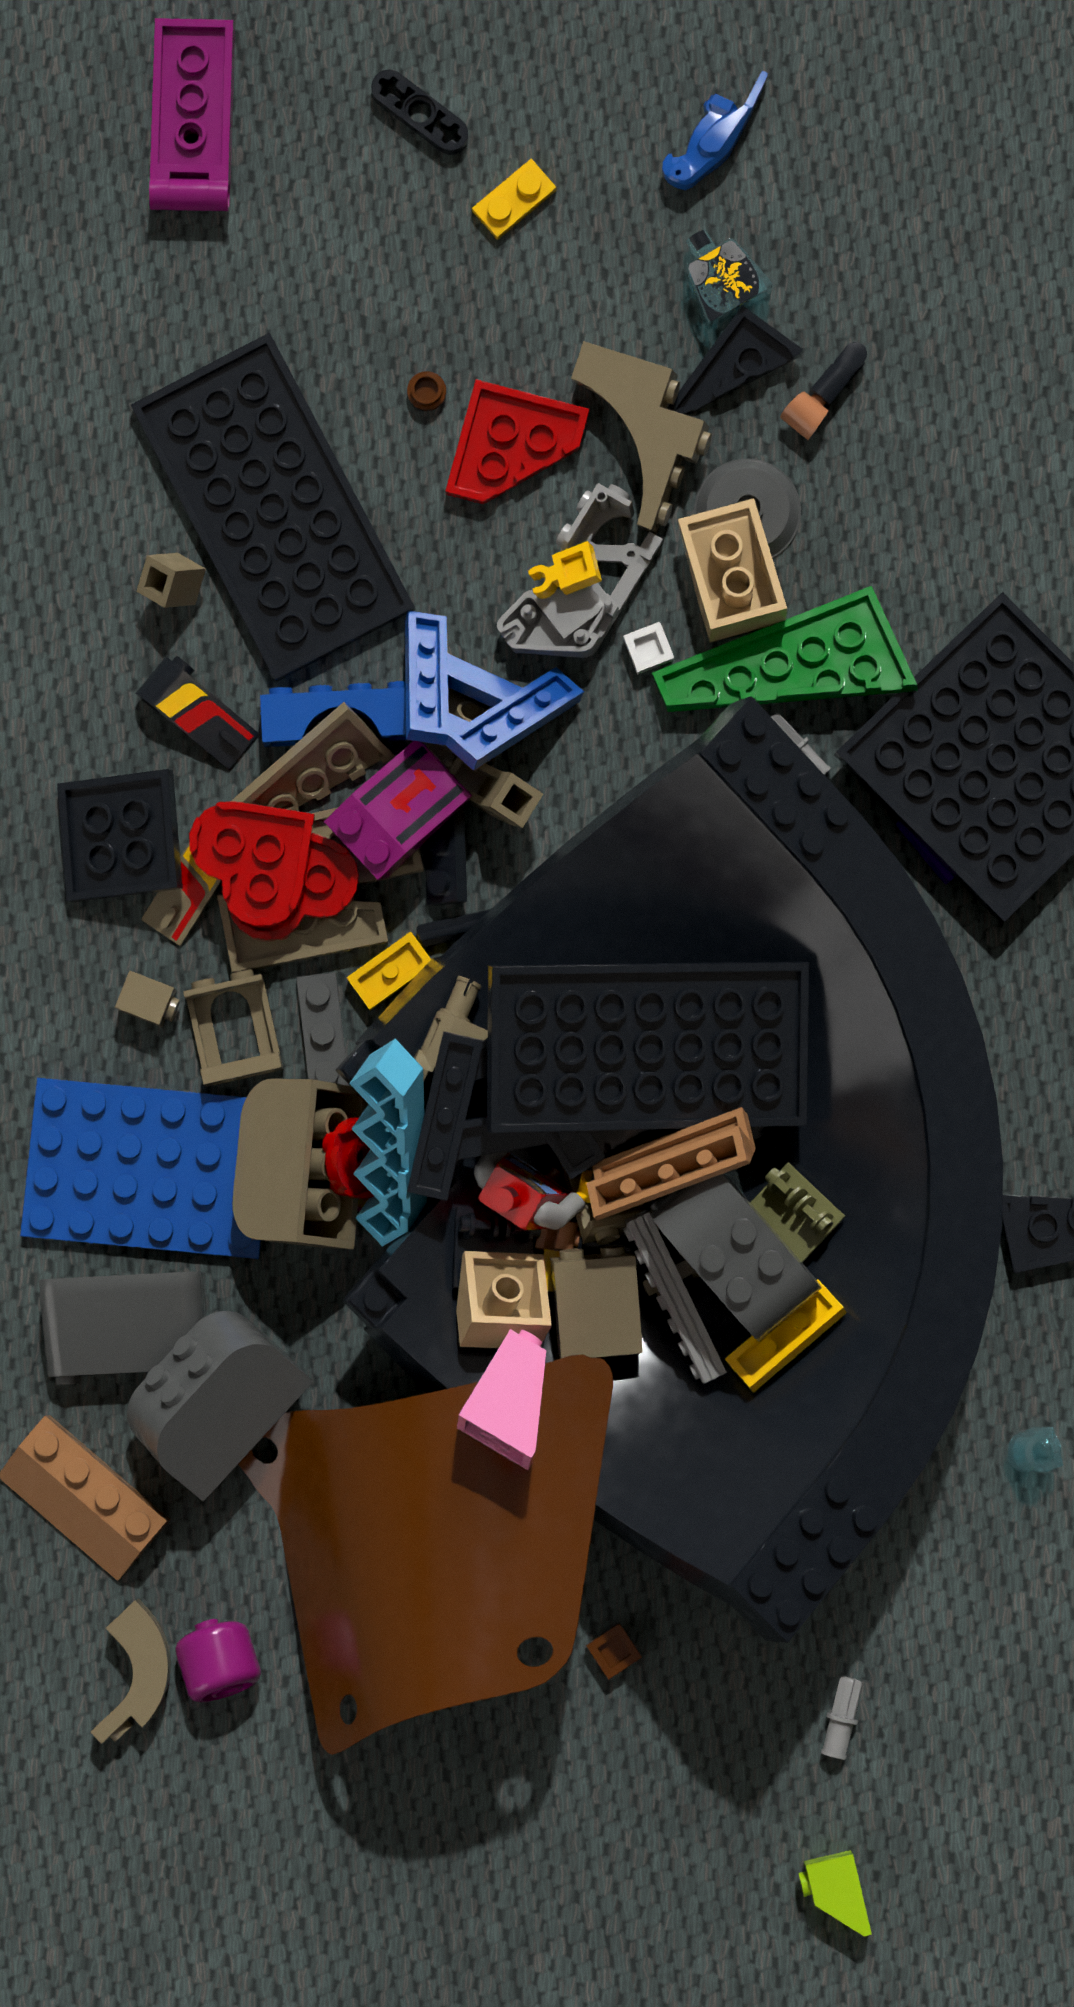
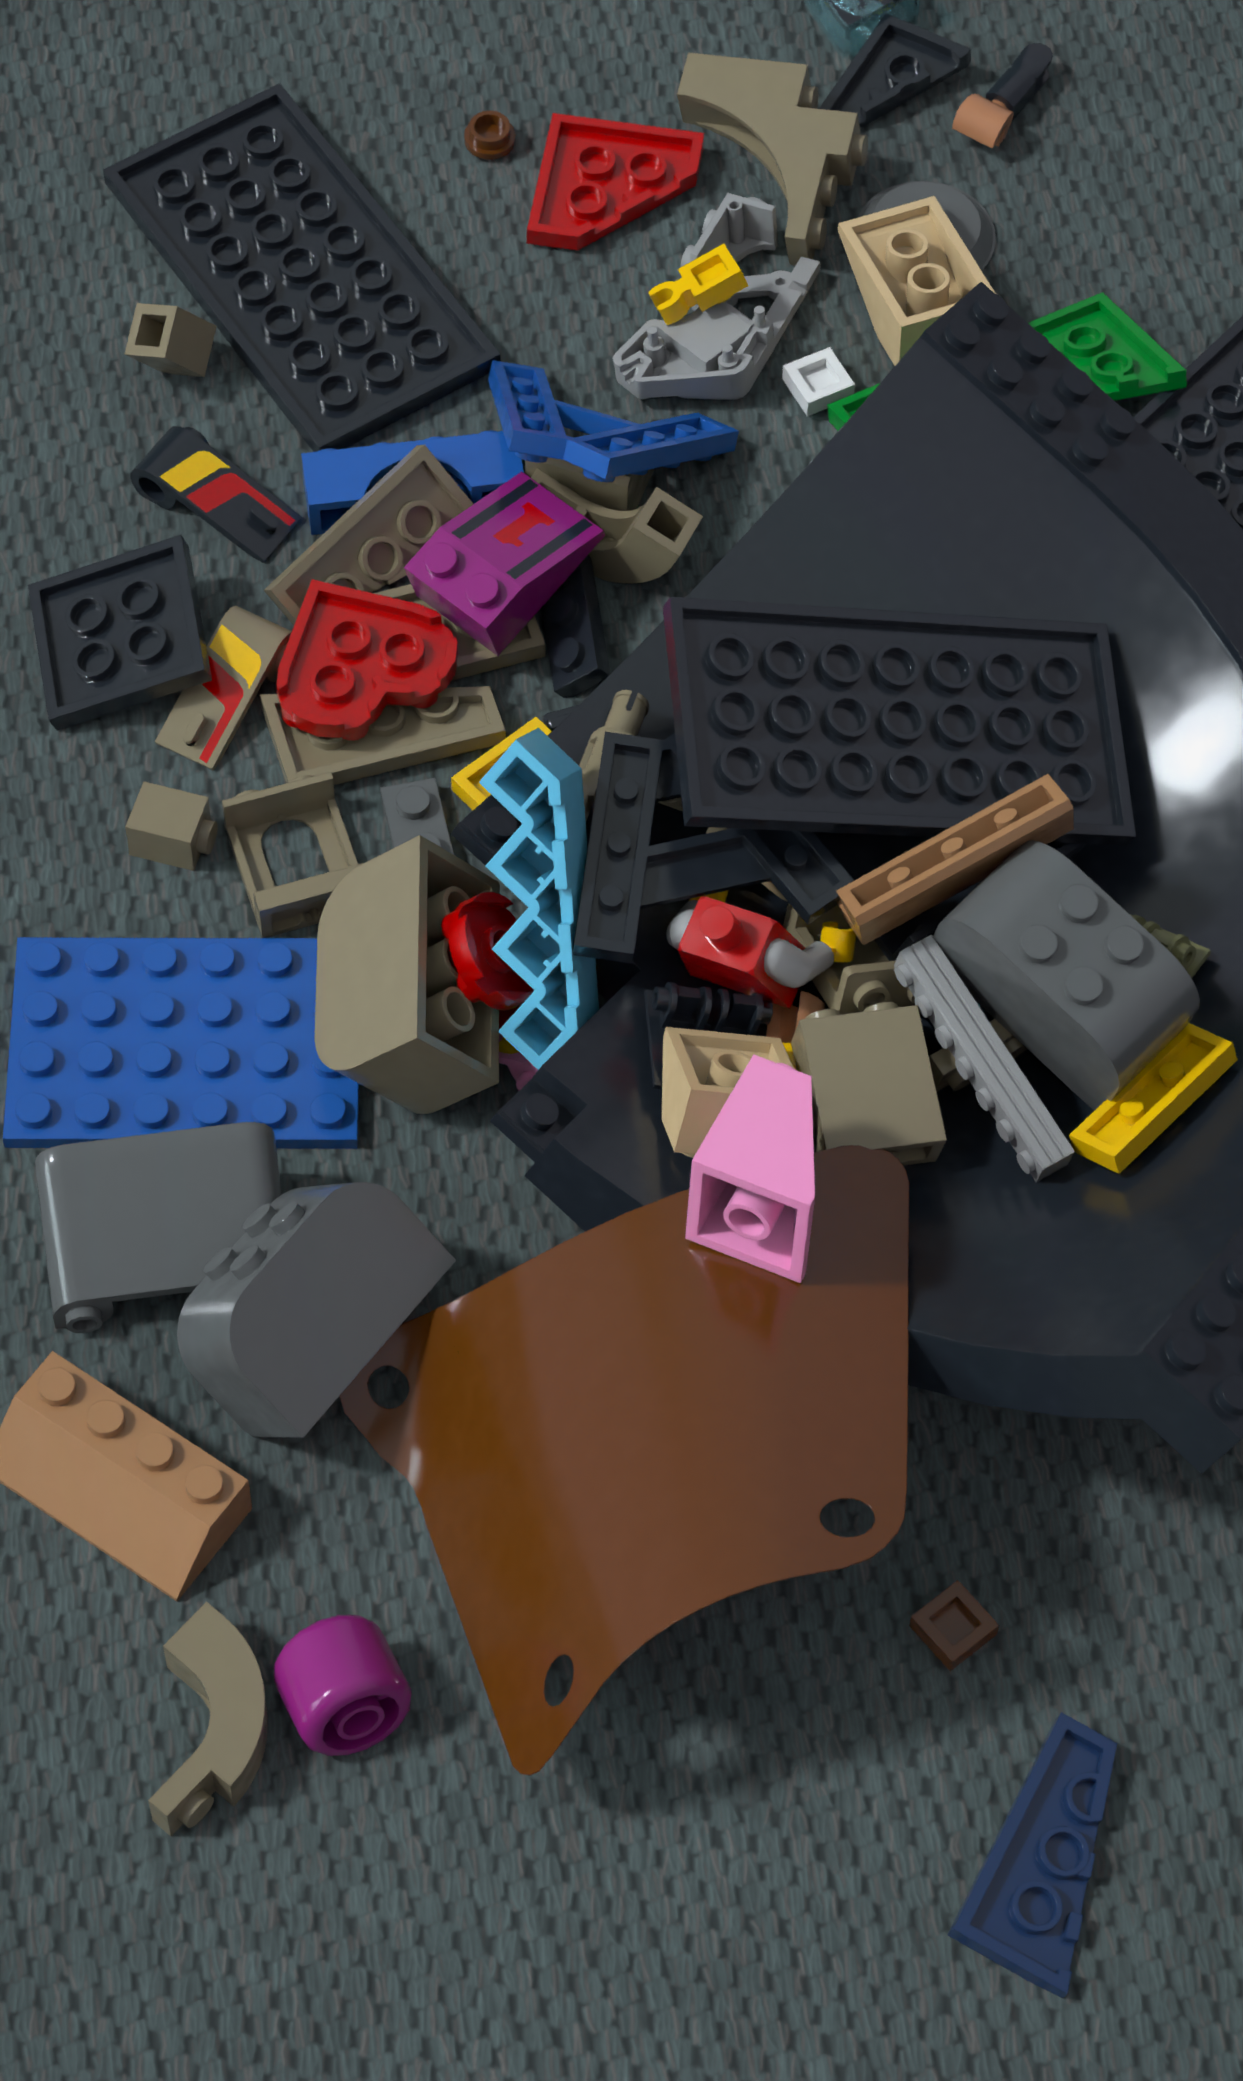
camera: 10 degrees left, 25 degrees down
(256, 855) = (313, 620): red plate -> none
(641, 1824) = (1037, 1871): none -> dark blue wing

